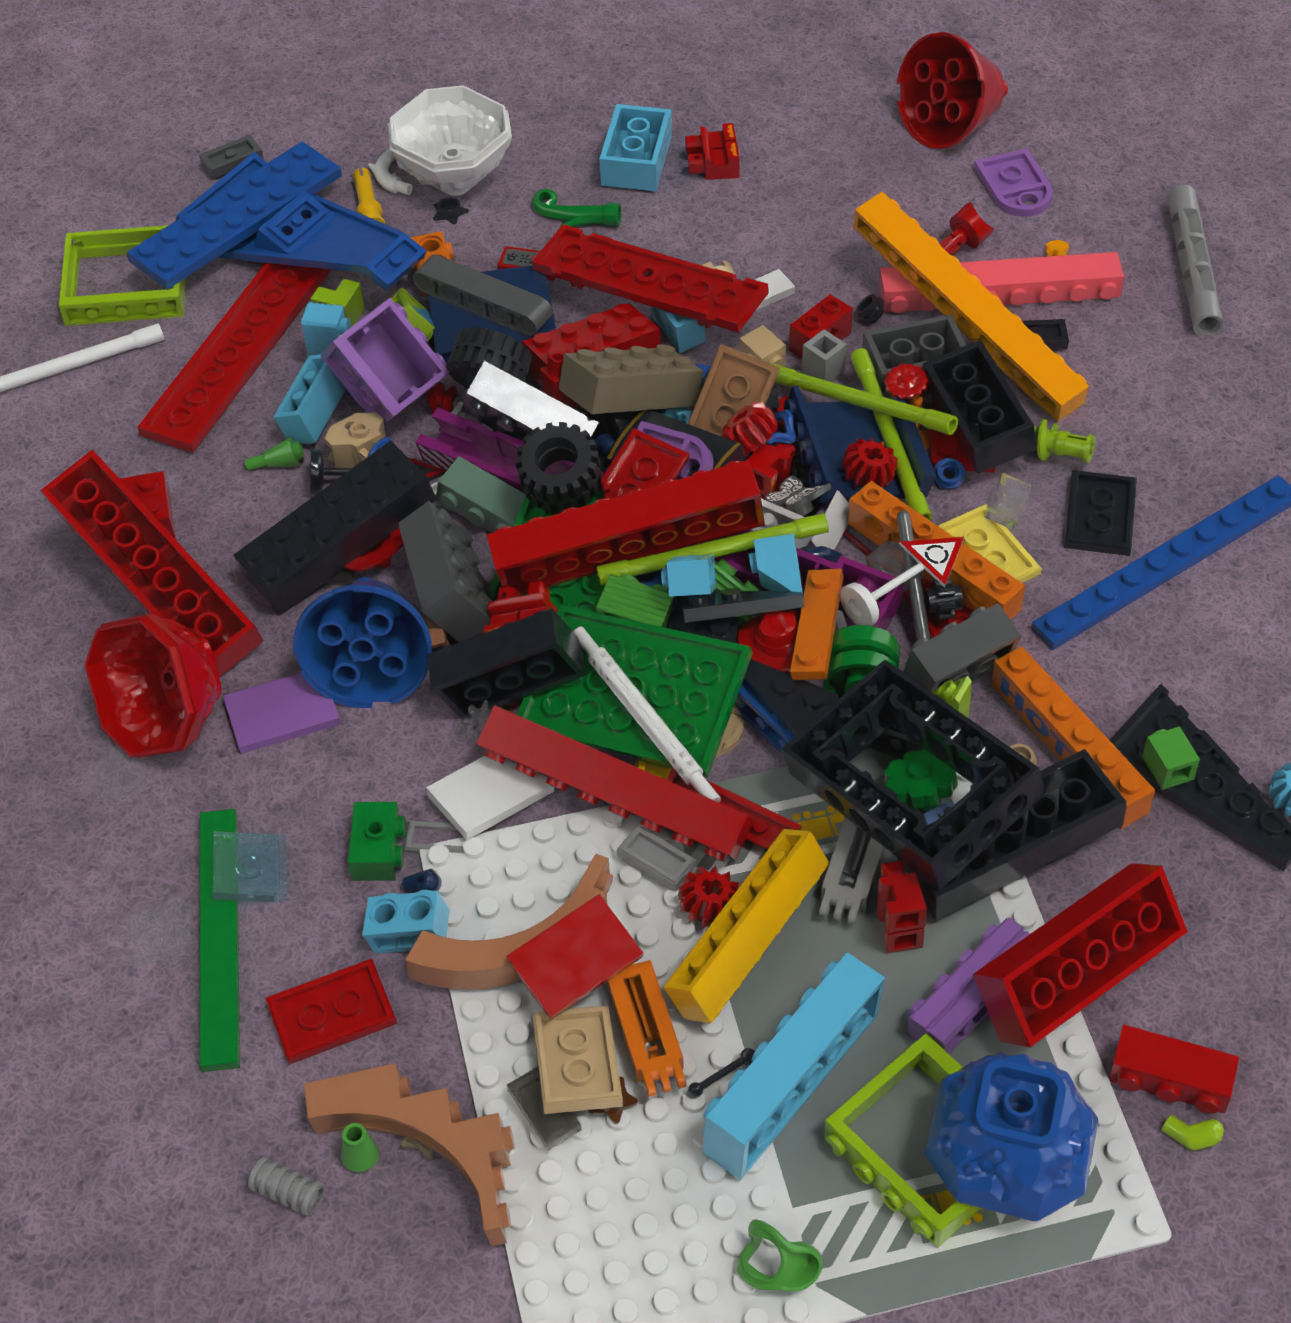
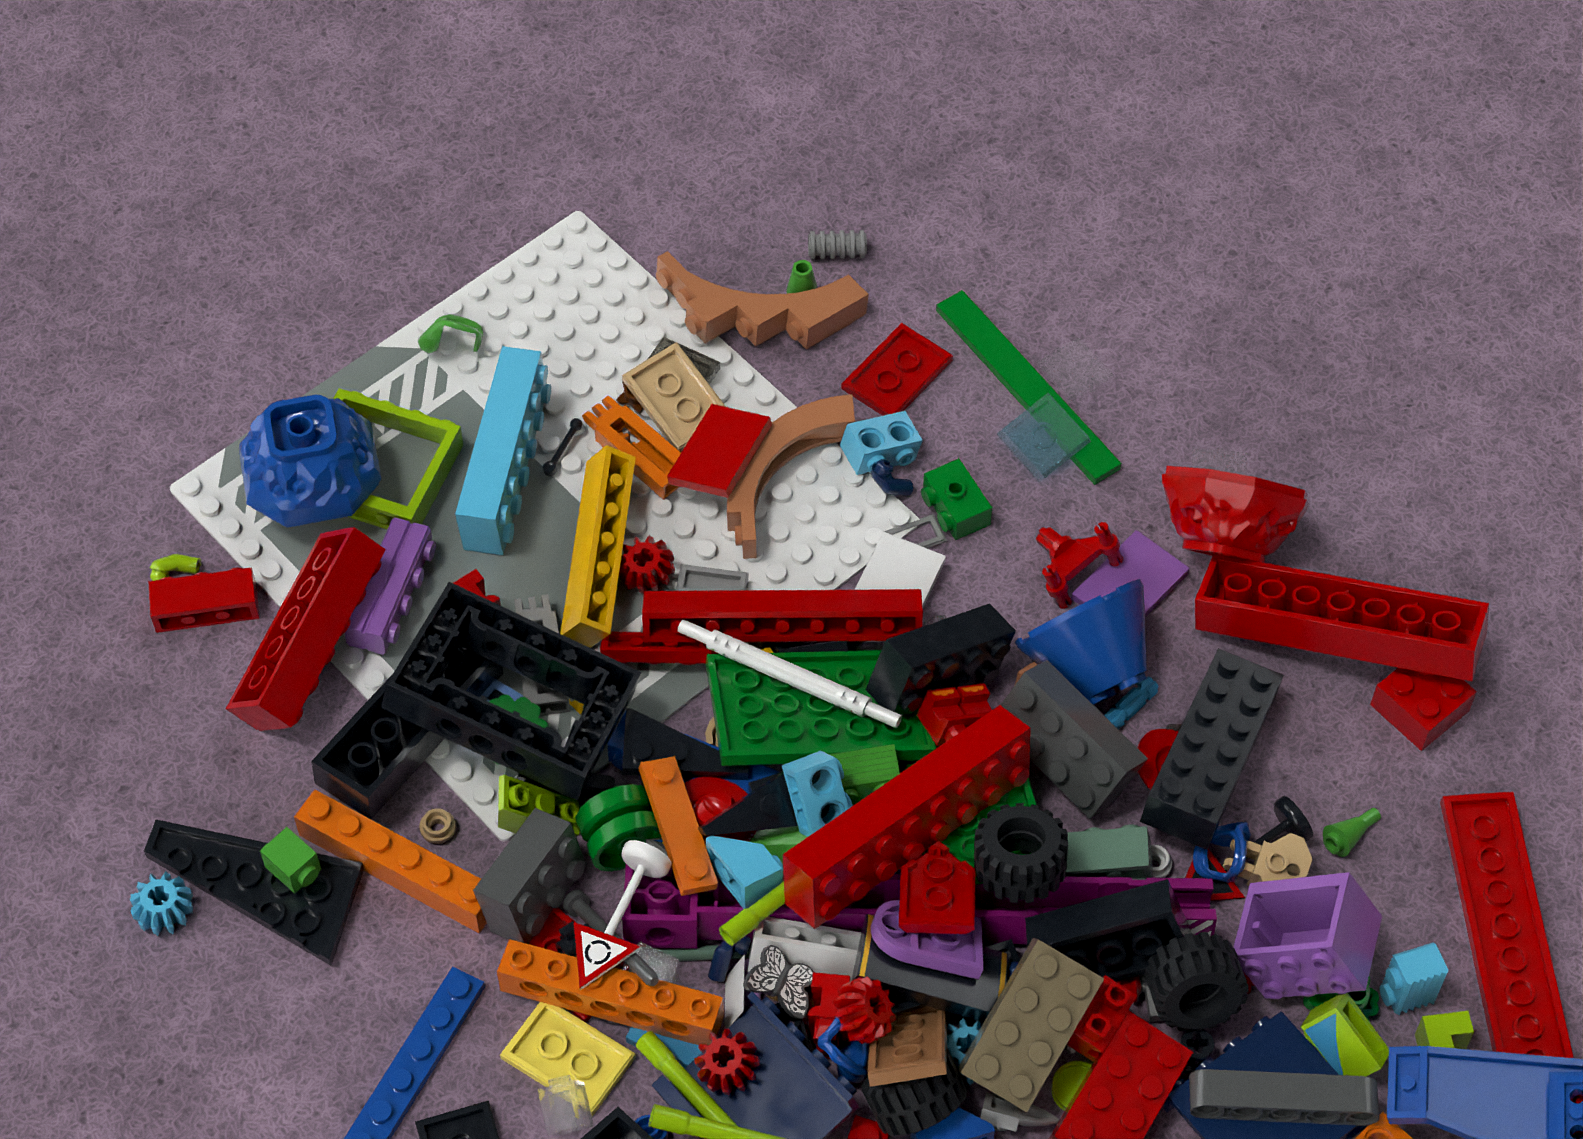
camera: 150 degrees right, 5 degrees up
(309, 401) = (1367, 867): medium azure brick -> none
(317, 736) = (1073, 555): none -> red axle

